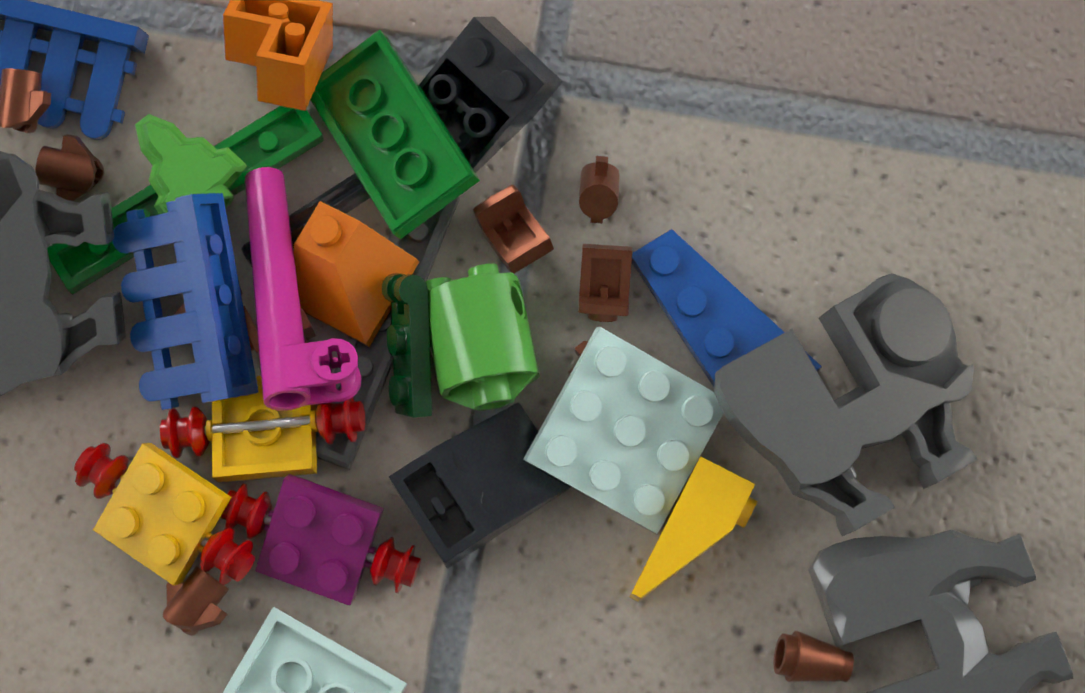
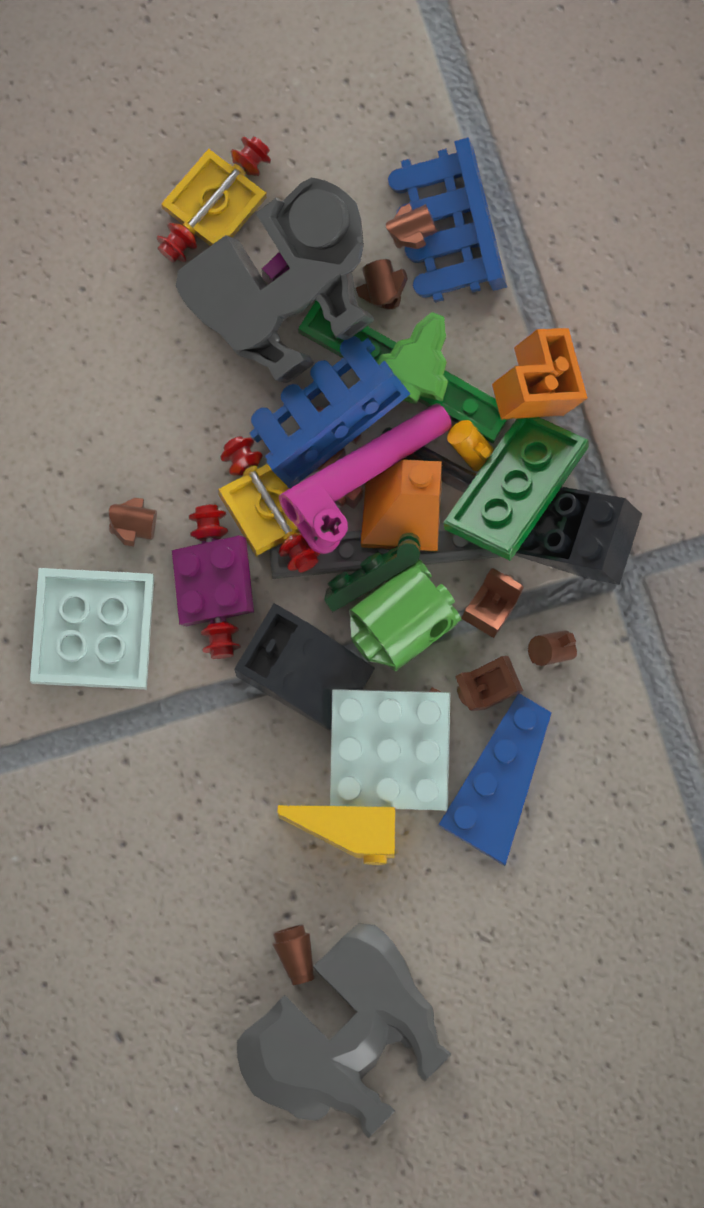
camera: 70 degrees right, 0 degrees up
(162, 513) = (178, 469): yellow plate -> none
(313, 163) = (470, 444): none -> light orange piece
(907, 374) = (536, 924): dark grey animal -> none

